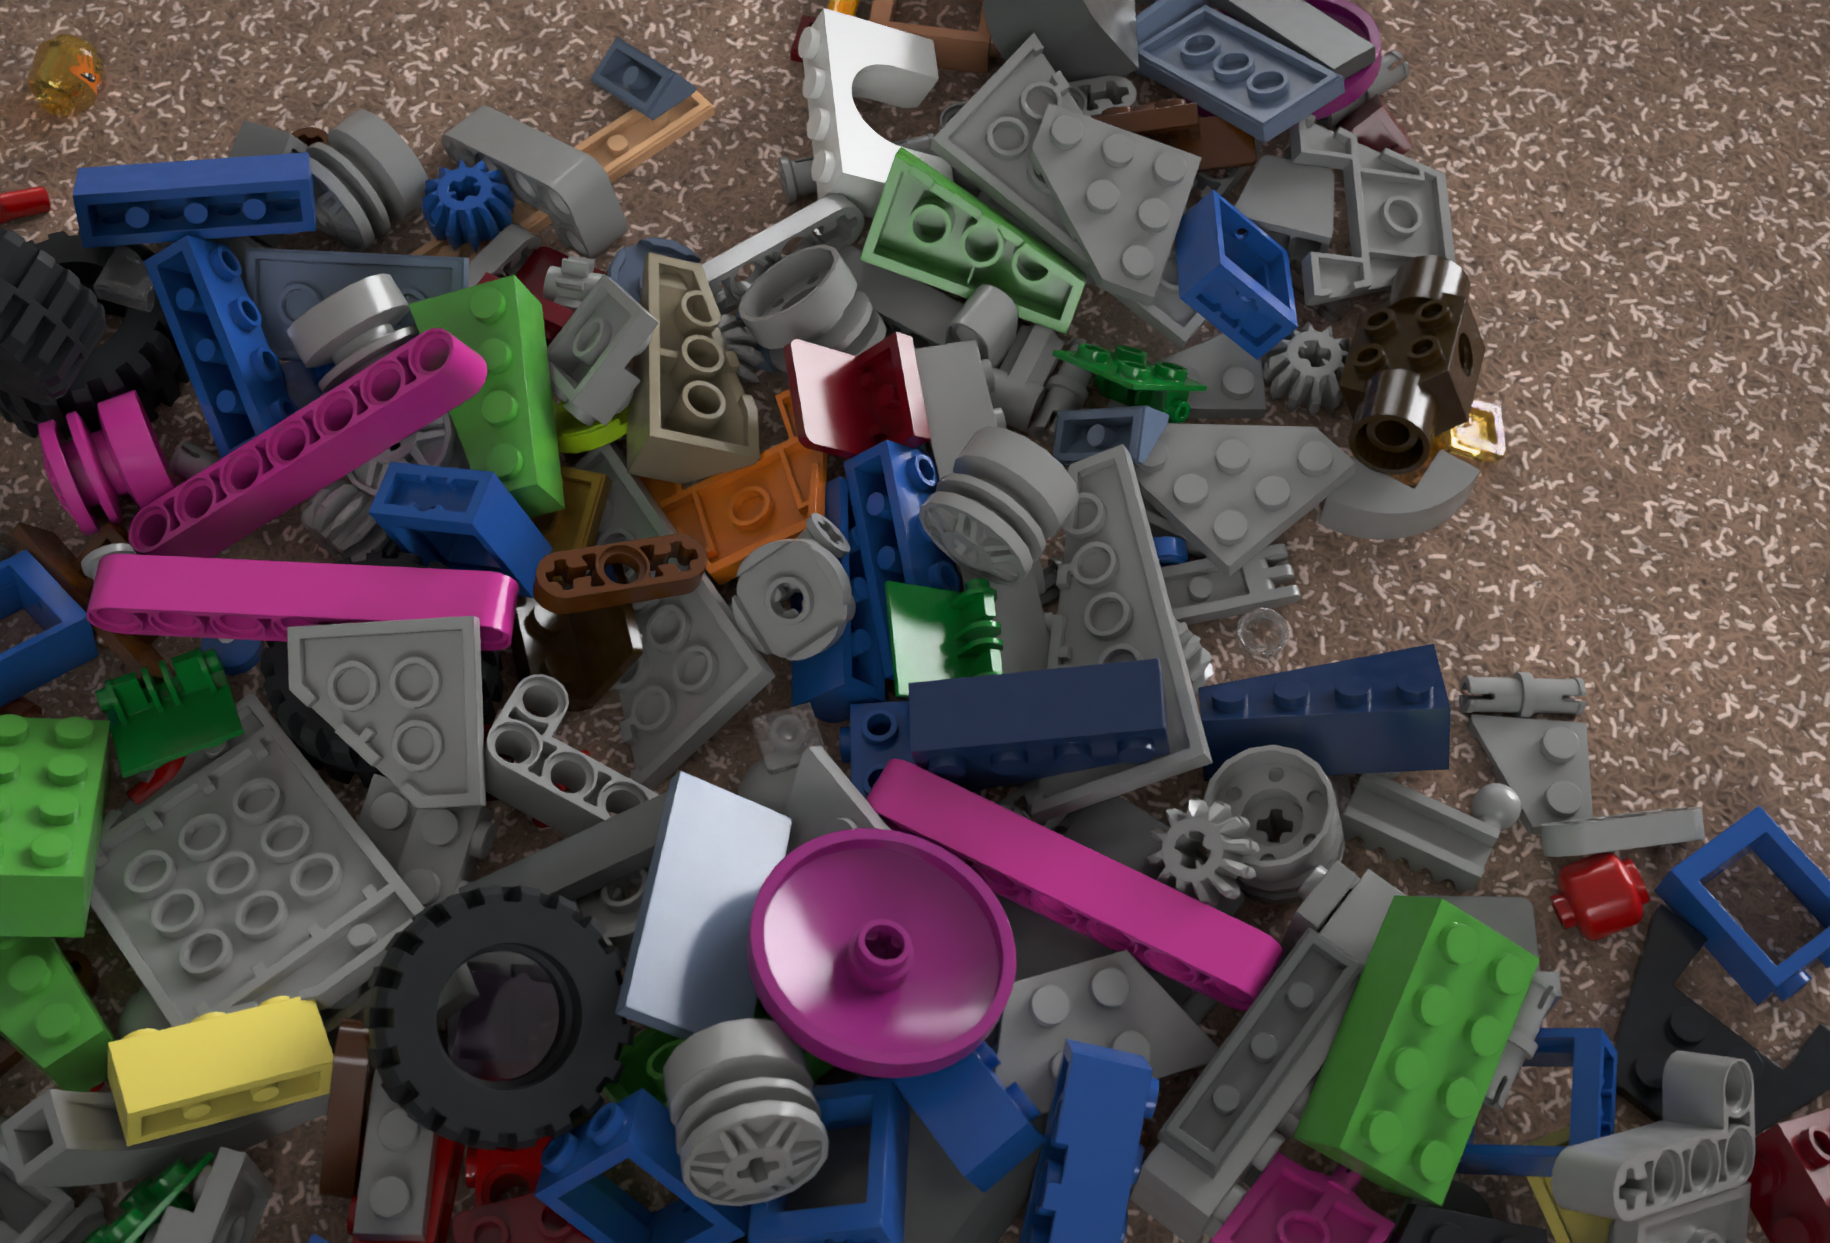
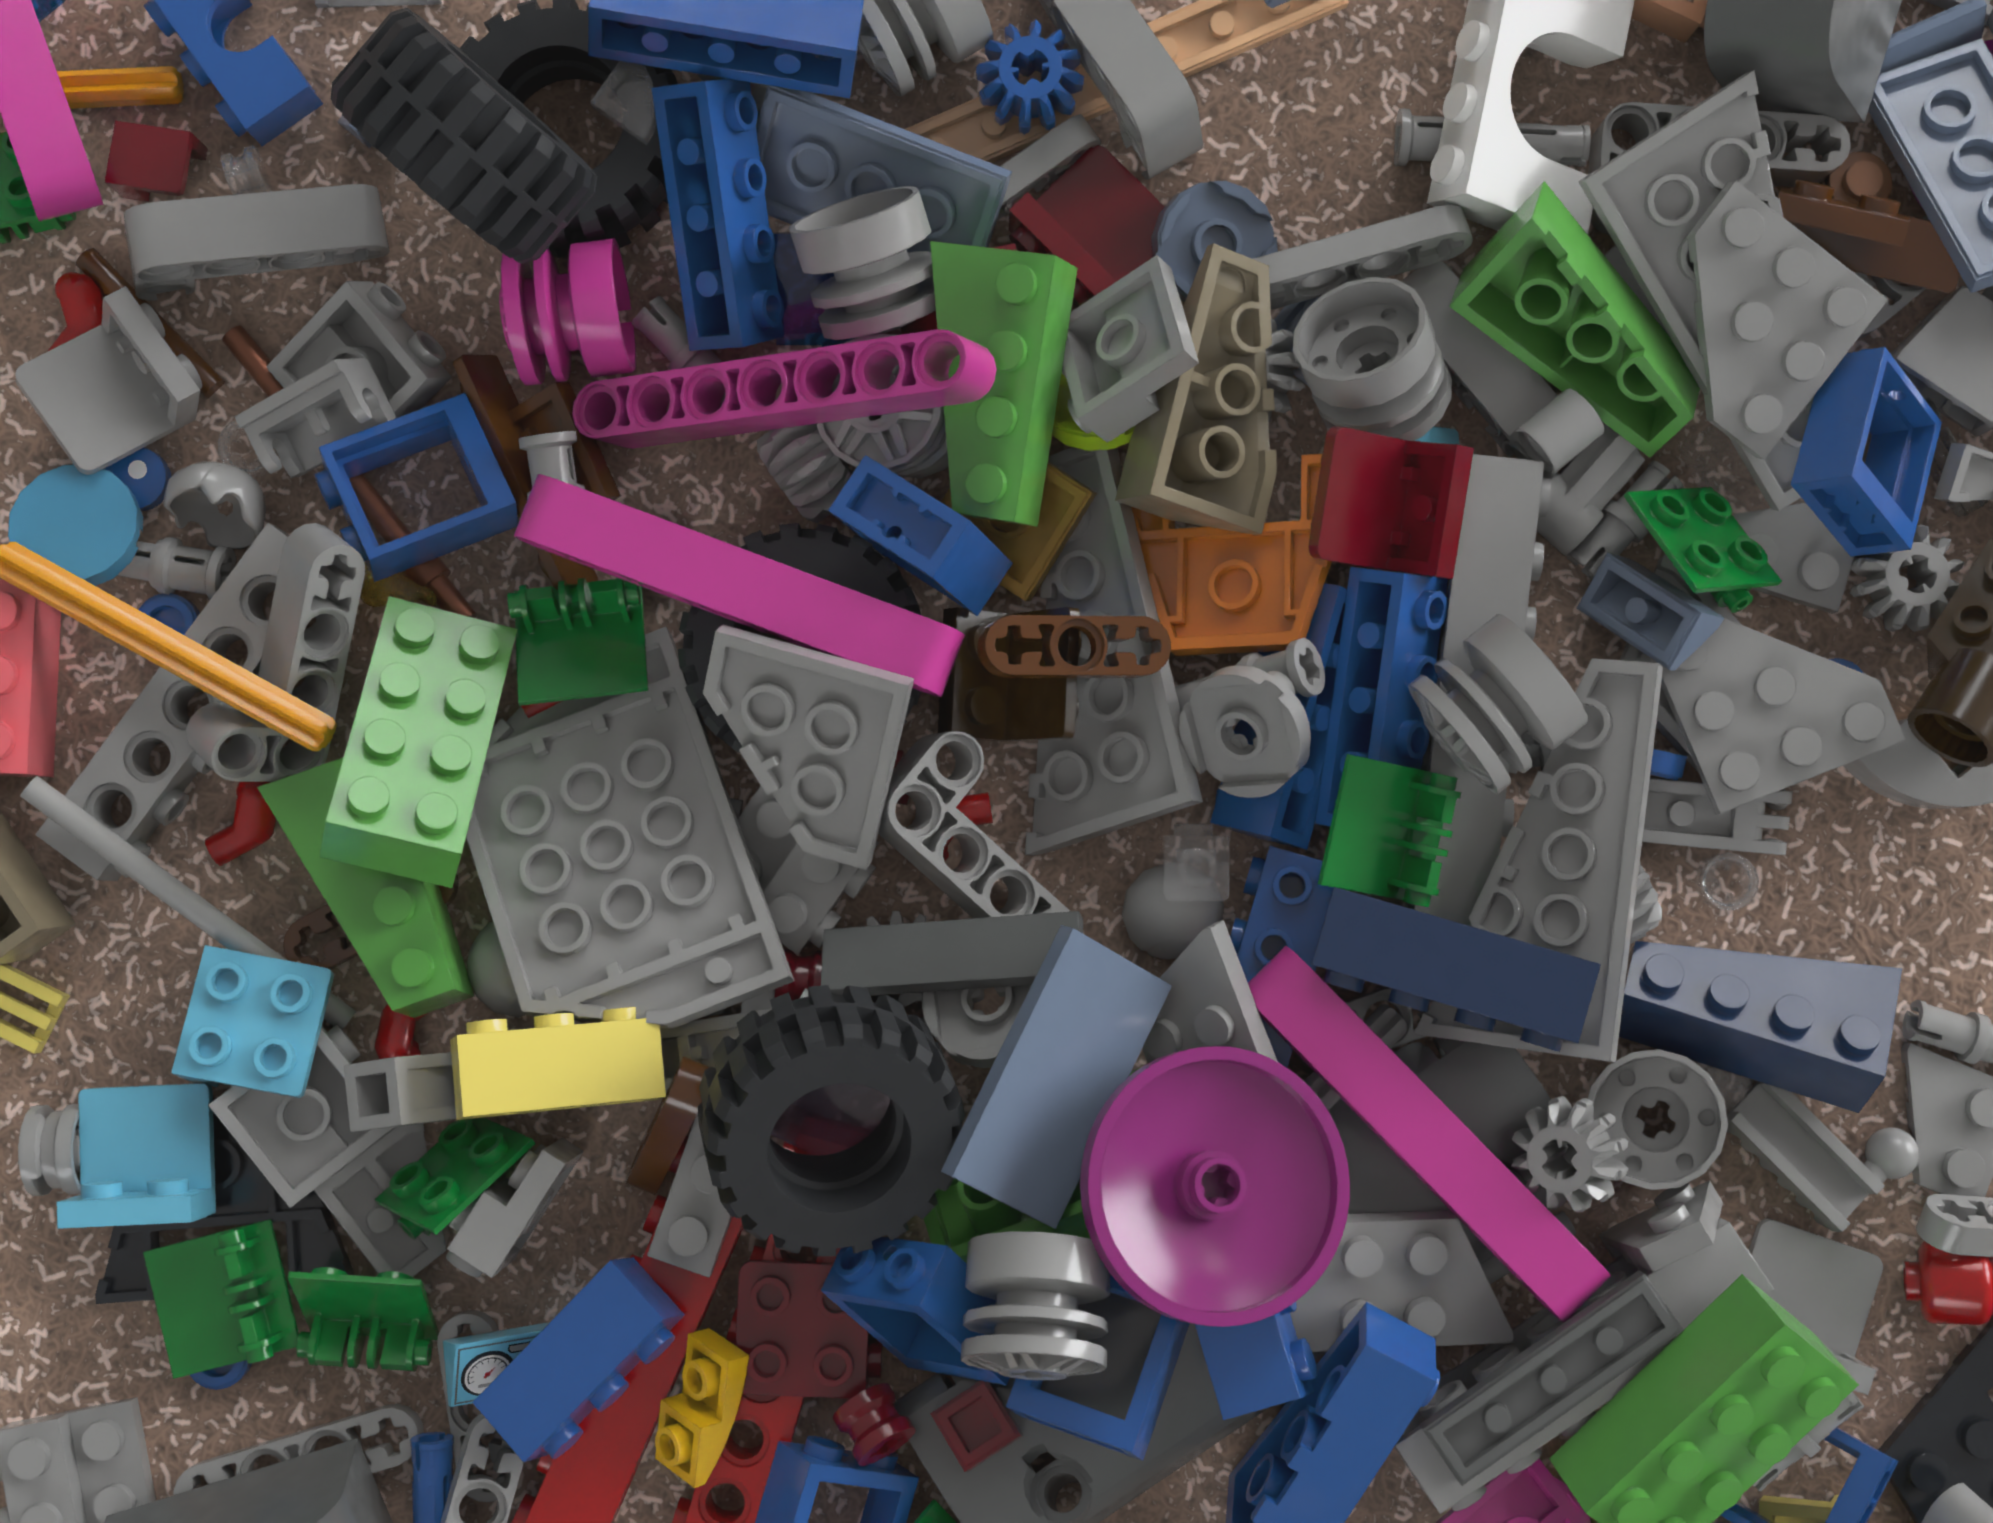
camera: 20 degrees right, 25 degrees up
(571, 282) = (1121, 234): light grey gear -> none

